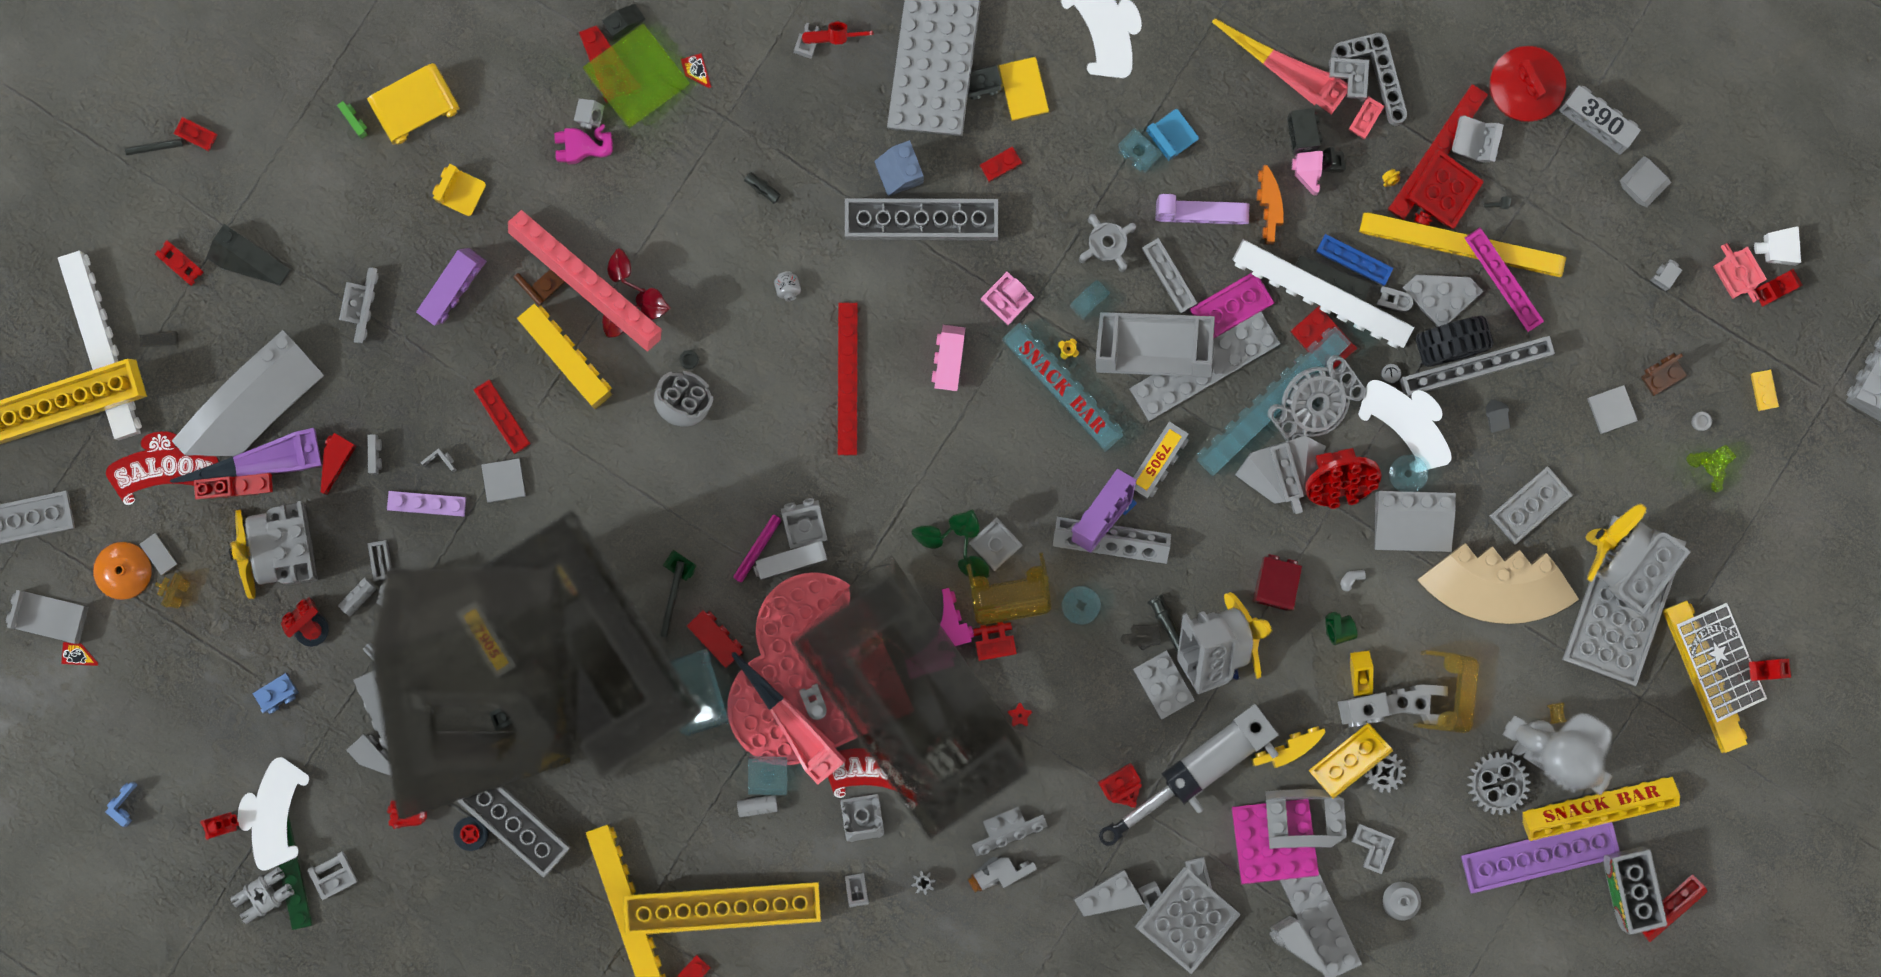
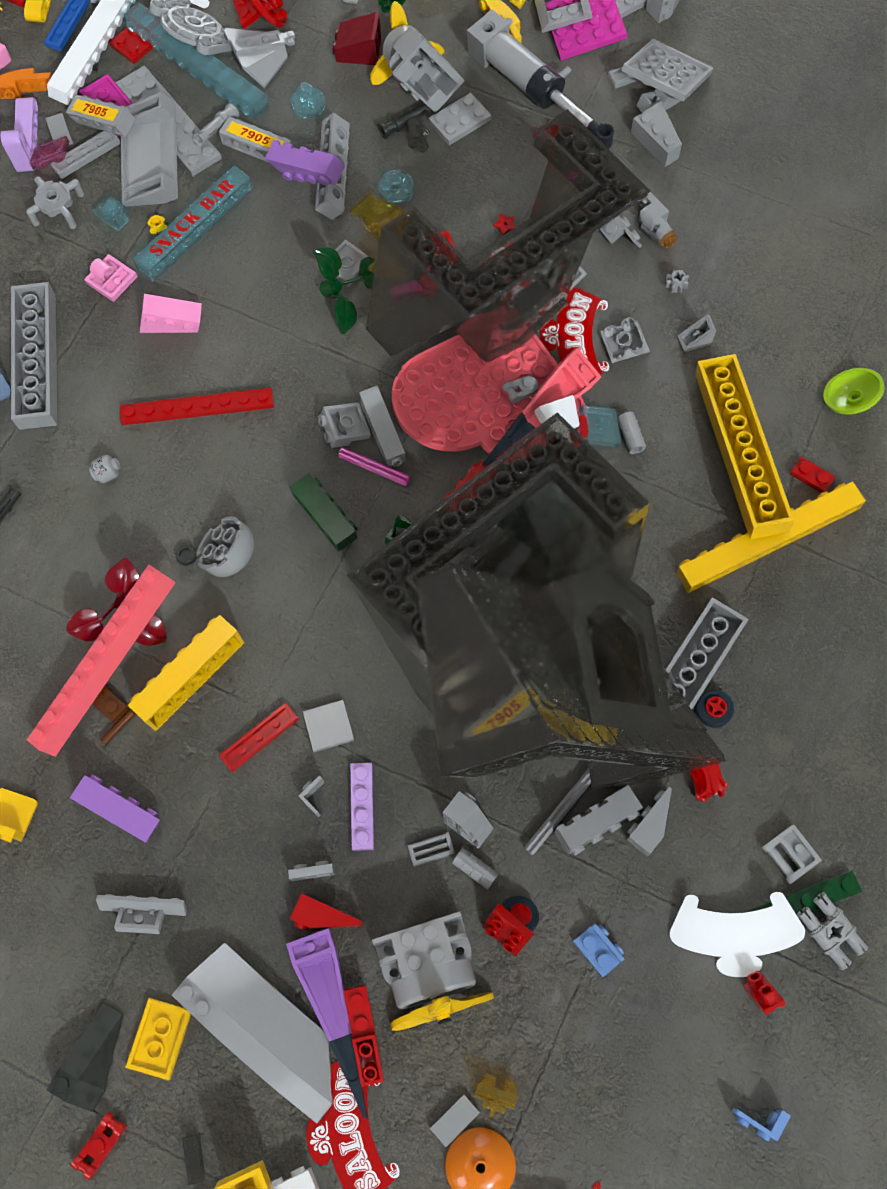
camera: 90 degrees left, 15 degrees down
(255, 314) = (159, 1039): none -> yellow tile
(710, 495) = (324, 512): none -> dark green brick
(760, 754) = (583, 426): none -> red tile
(771, 734) = (565, 407): none -> white torso
(1168, 238) = (50, 152): none -> clear pink plate
(1191, 425) = (217, 123): none -> light grey pin
(1205, 247) = (58, 127): none -> light grey tile
(1206, 295) = (101, 115): none -> light grey brick
(1208, 521) = (307, 101): none -> clear light blue tile

